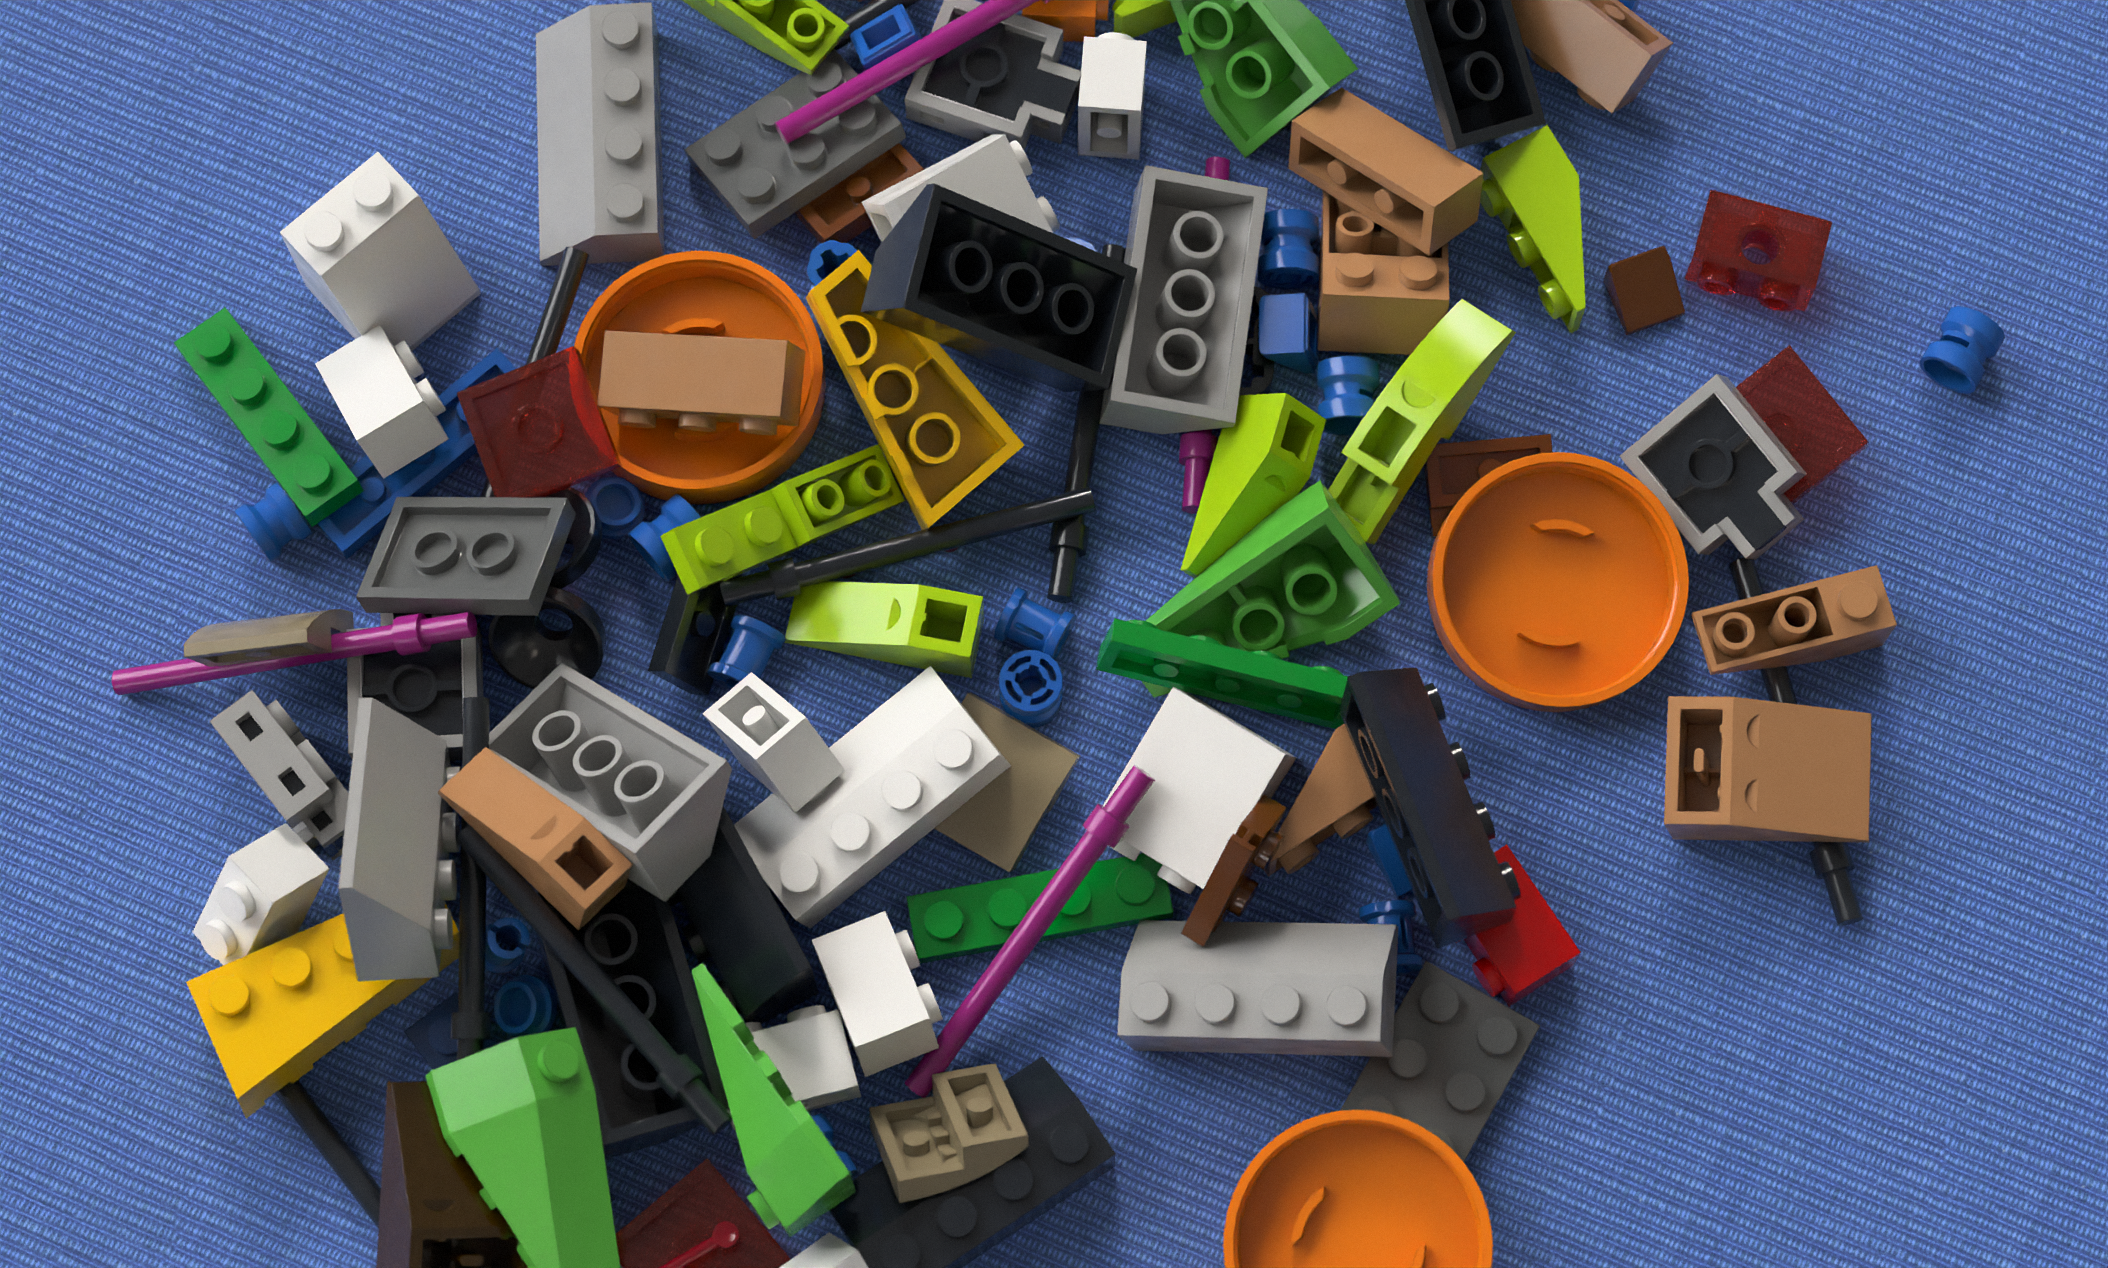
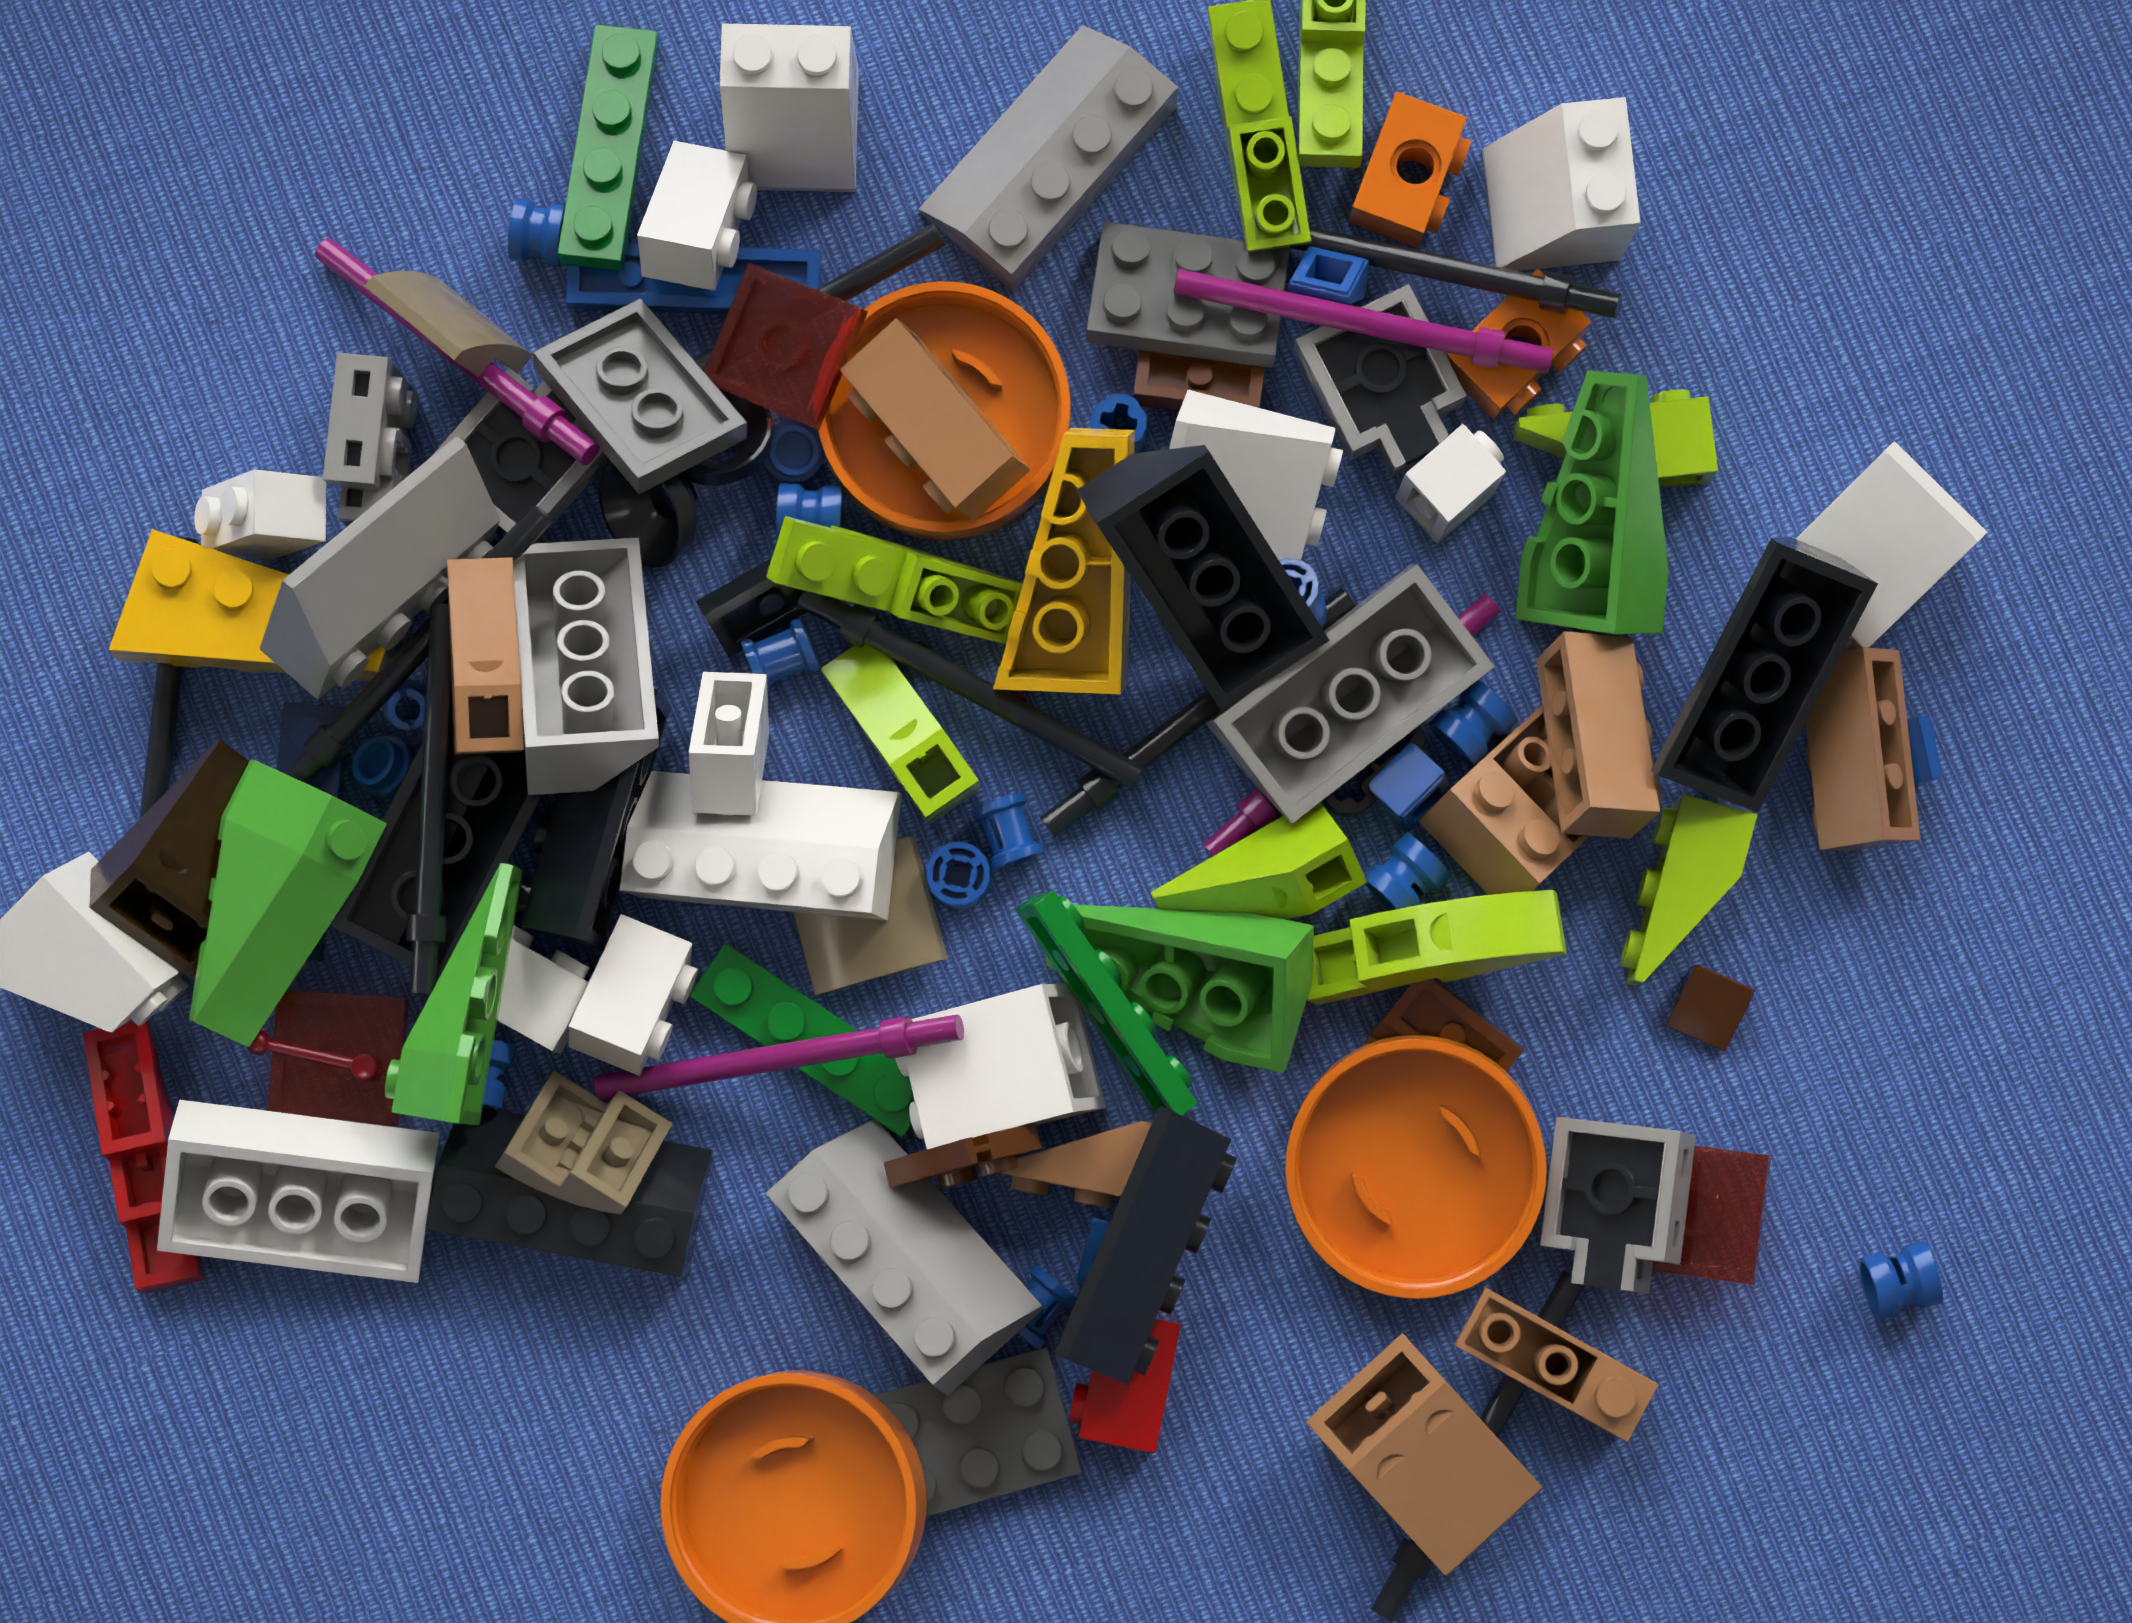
camera: 45 degrees right, 10 degrees up
(1788, 238) = (1856, 1077): clear red brick -> none

